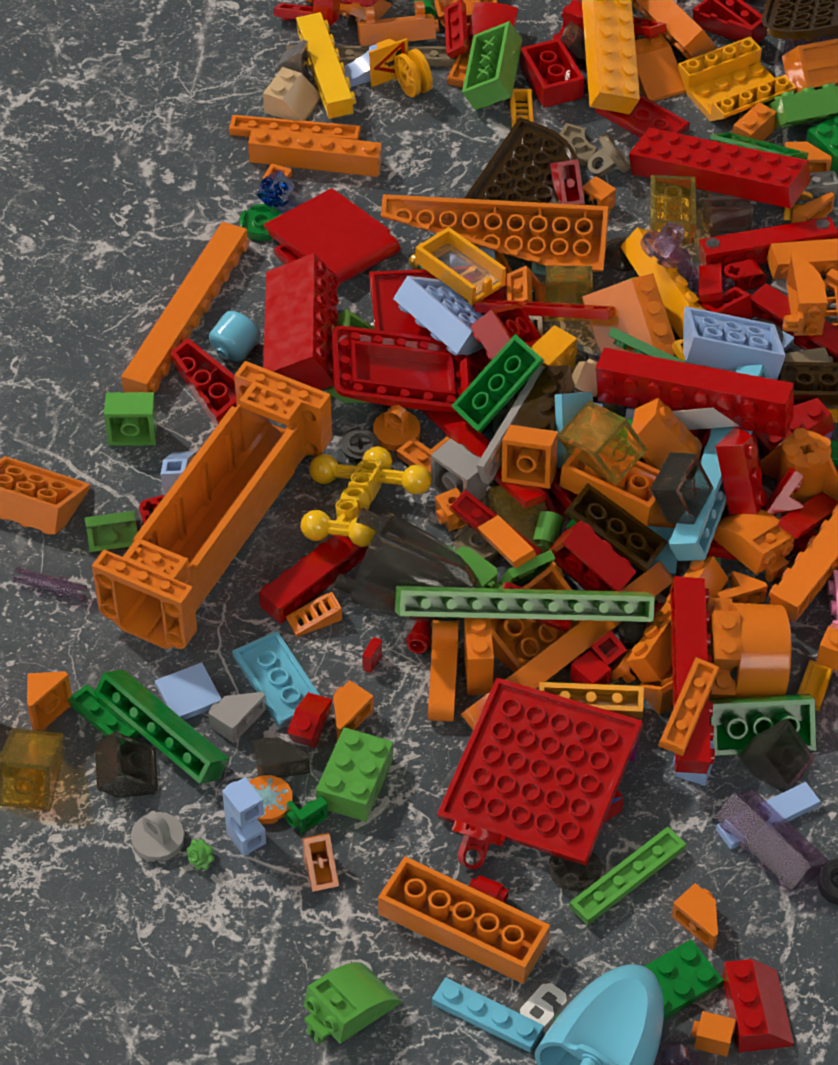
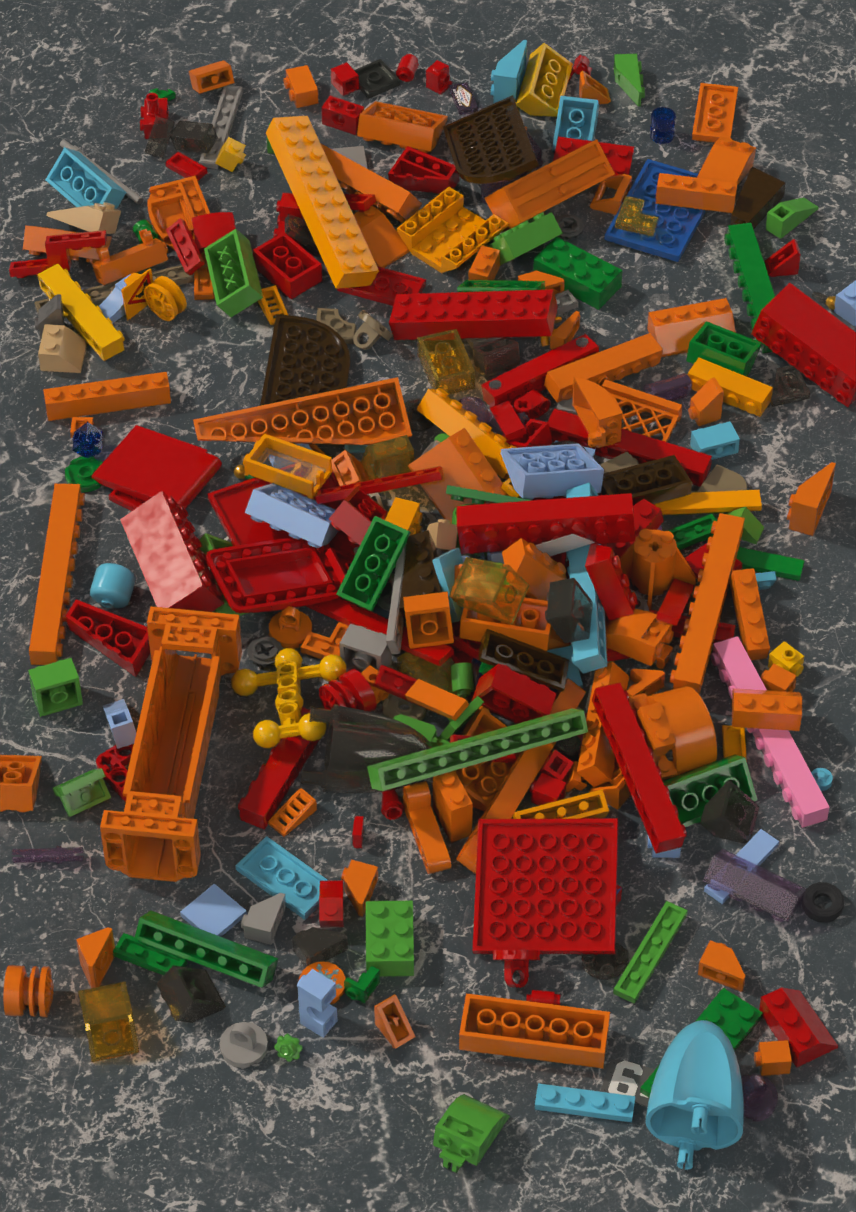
camera: 20 degrees left, 0 degrees up
(243, 125) = (34, 386): orange tile -> none
(425, 512) = (349, 691): none -> red wheel
(567, 182) = (347, 363): red slope -> none
(599, 193) = (375, 367): orange brick -> none
(663, 245) = (460, 401): tile -> none
(689, 706) = (651, 794): orange tile -> none
(780, 499) = (648, 594): slope -> none

